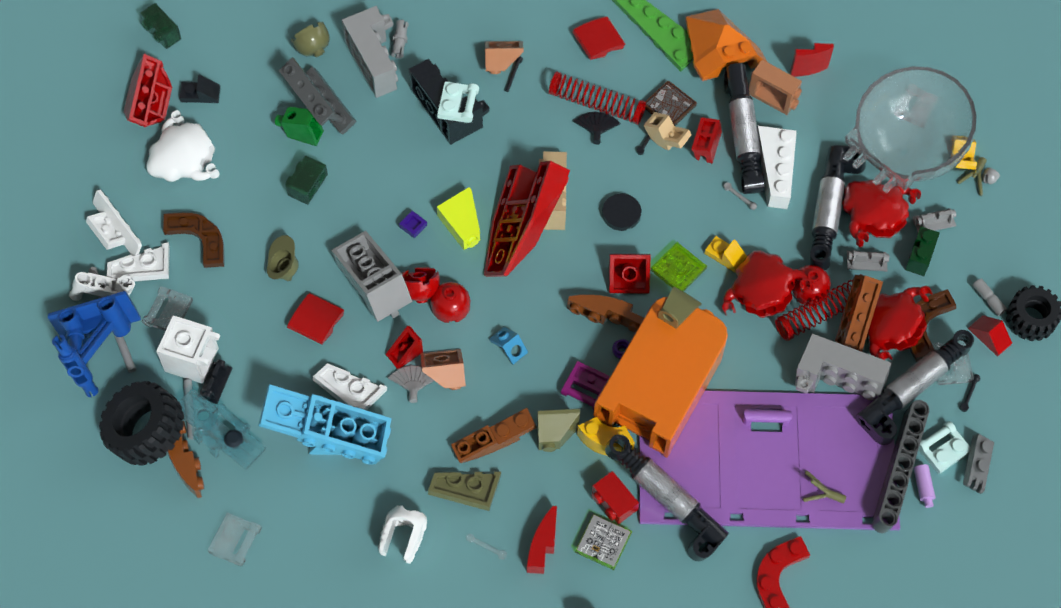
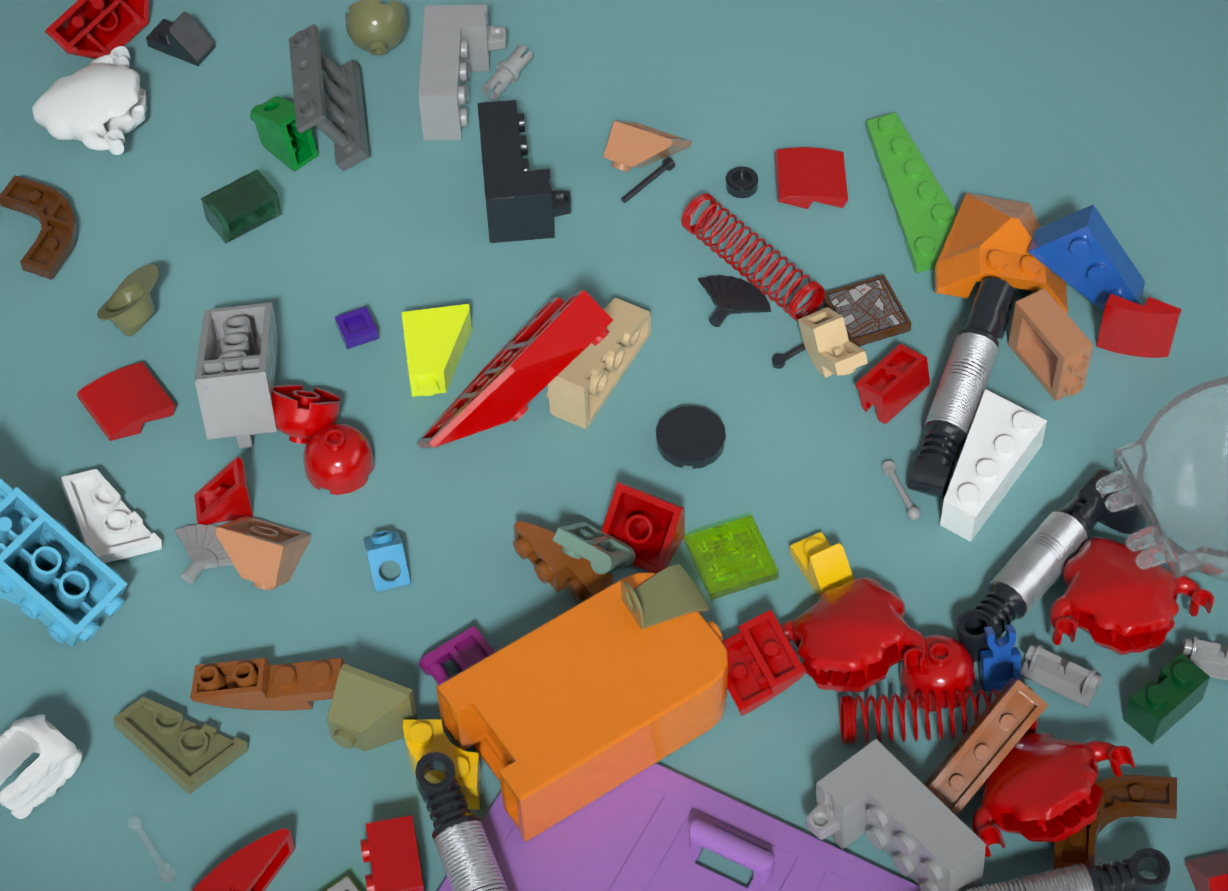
camera: 30 degrees right, 10 degrees down
(451, 102) = (511, 165): light aqua plate -> none
(563, 55) = (742, 182): none -> black tile
(614, 292) = (594, 545): none -> sand green plate
(732, 313) = (760, 663): none -> red slope
(771, 32) = (1088, 257): none -> blue wedge
(840, 266) = (1001, 661): none -> blue plate

